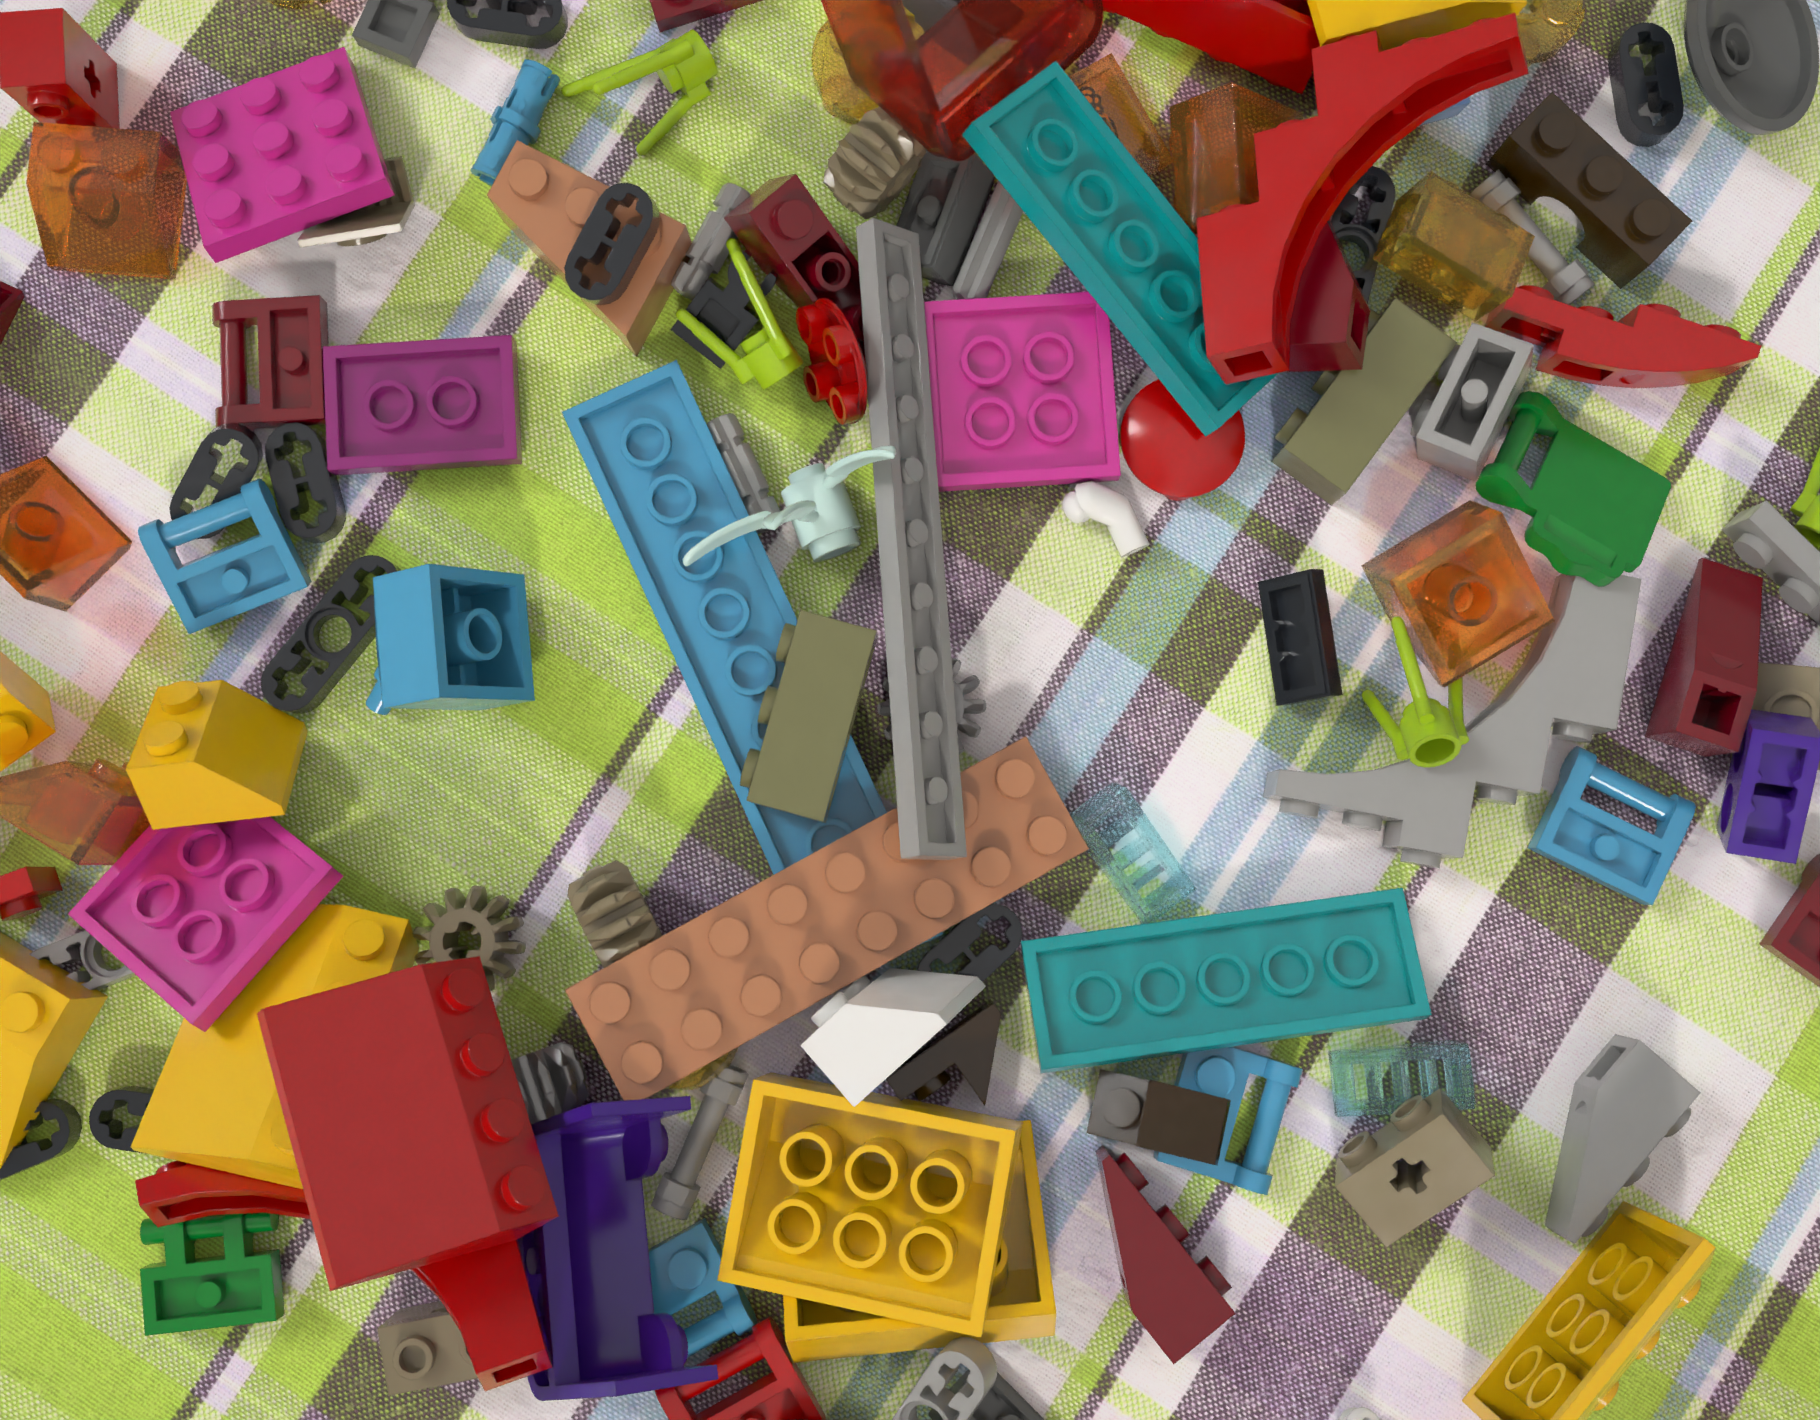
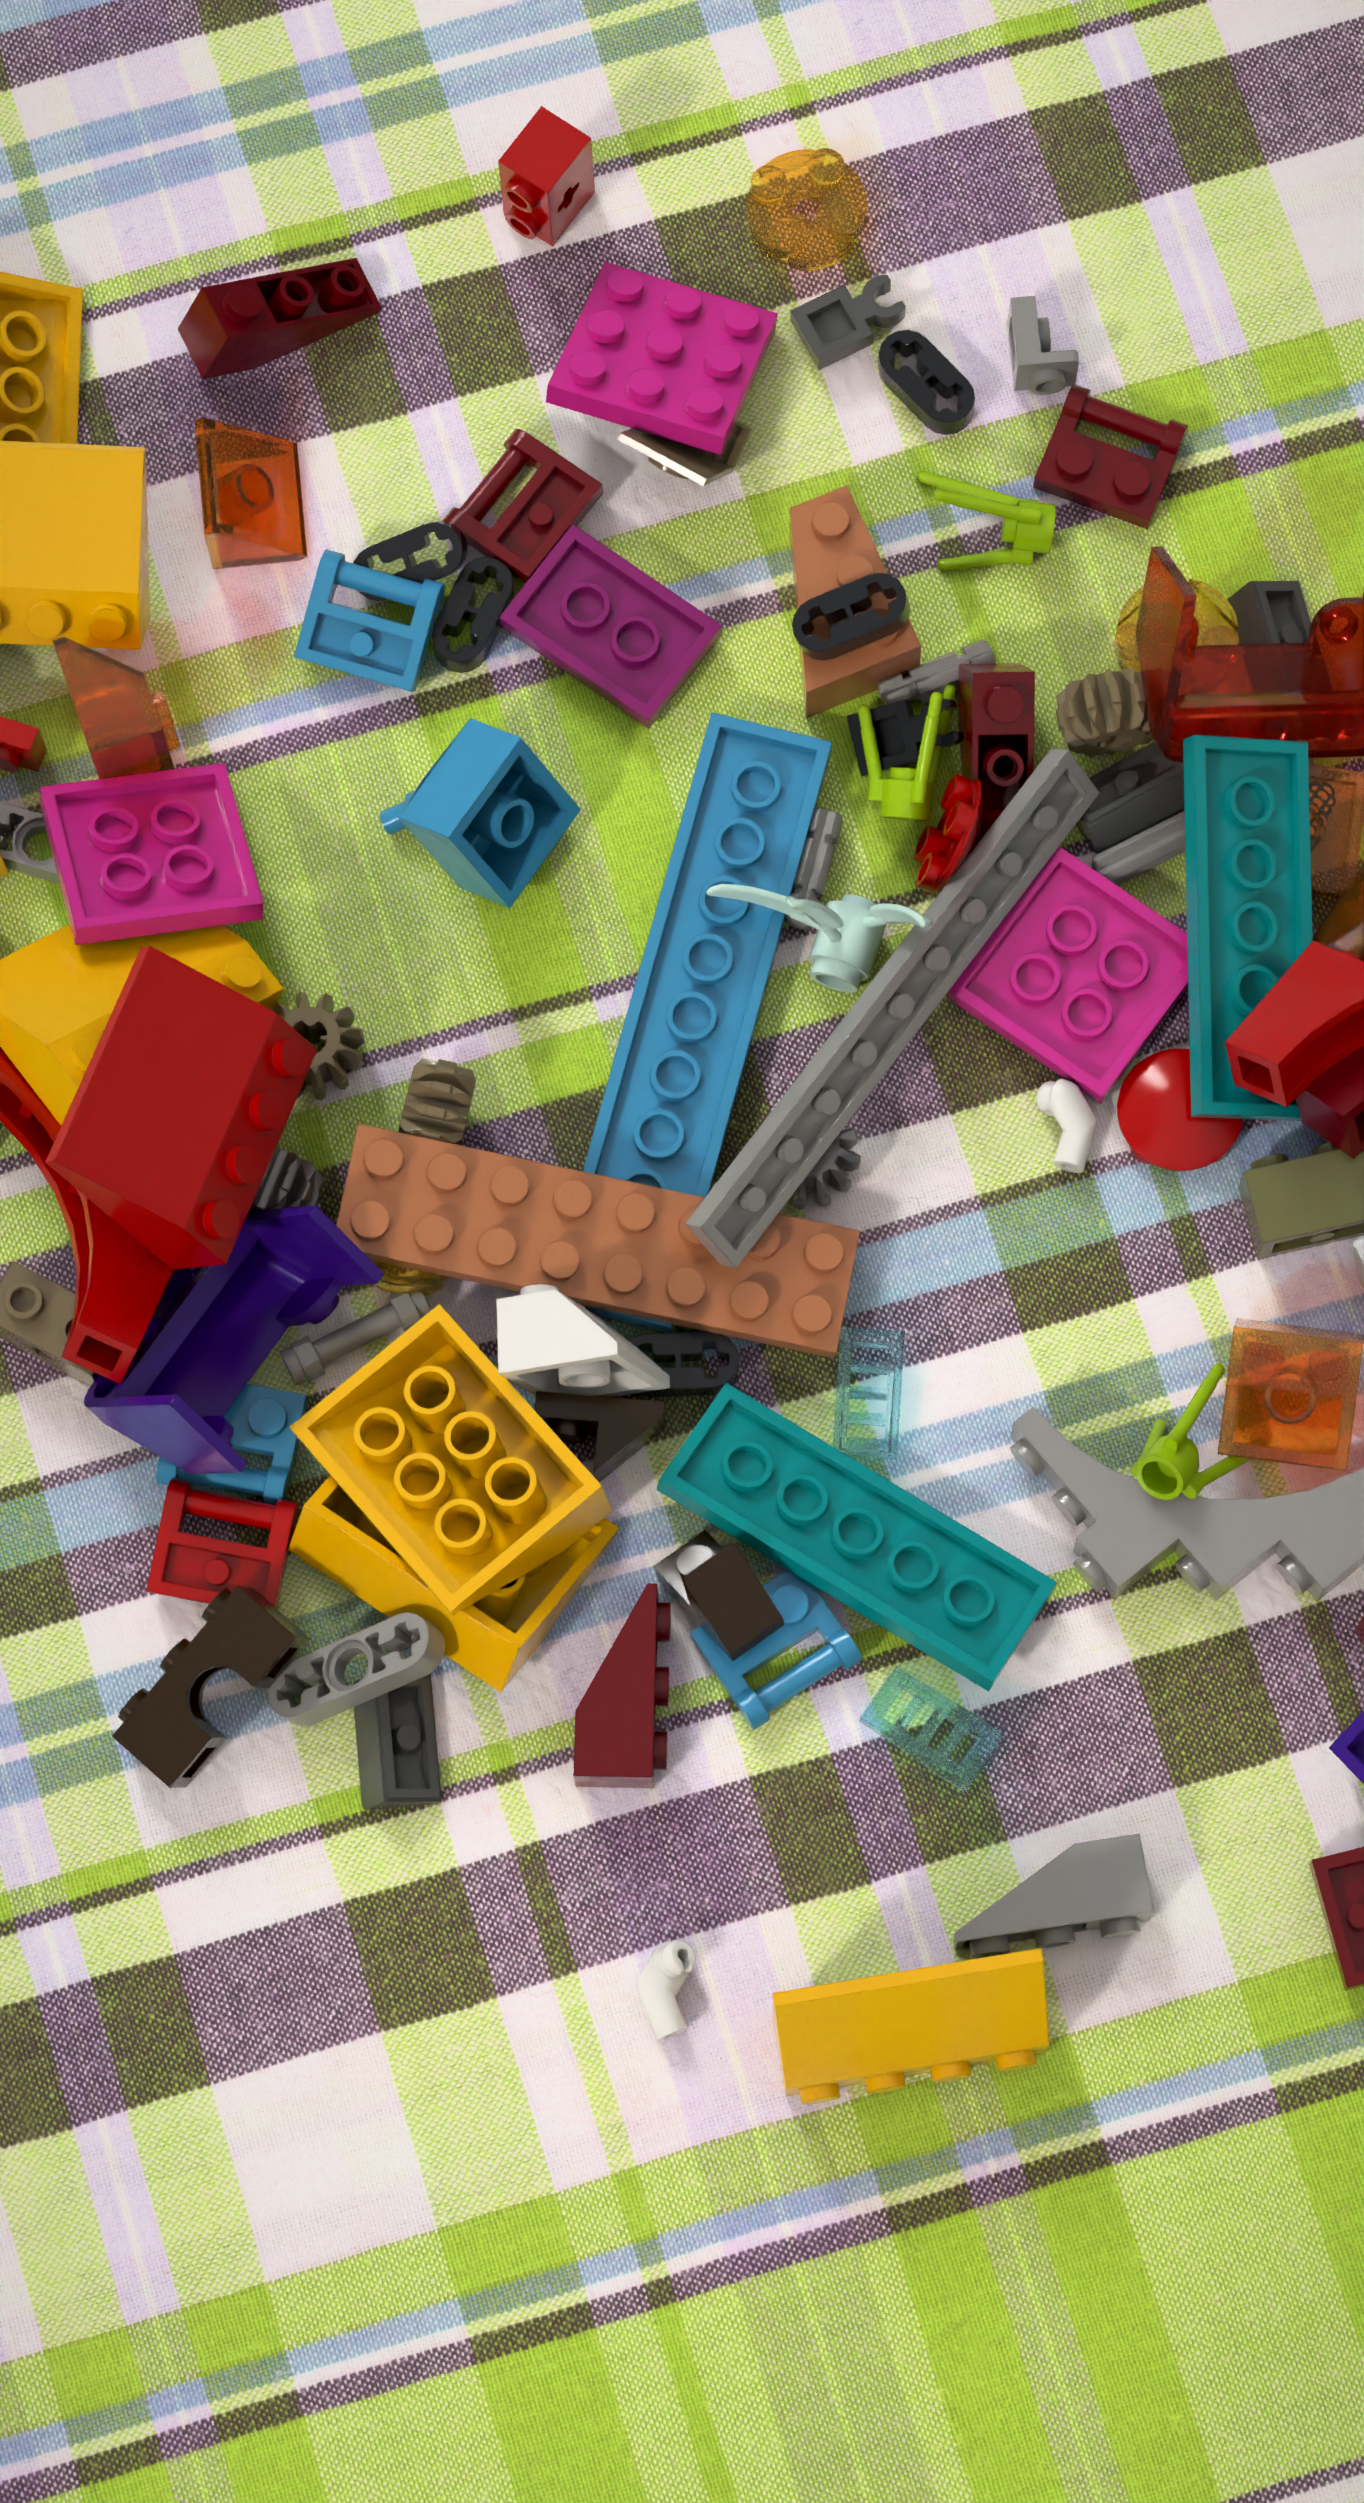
camera: 45 degrees right, 10 degrees down
(107, 199) = (503, 292): clear orange slope -> none
(214, 756) = (243, 757): yellow slope -> none
(289, 658) = (387, 767): black beam -> none
(516, 118) = (864, 468): dark azure pin -> none
(809, 715) = (706, 1080): olive brick -> none
(1300, 637) = (1139, 1331): black plate -> none
(1402, 1195) = (918, 1791): dark tan brick -> none
(1603, 844) = (1247, 1682): dark azure plate -> none

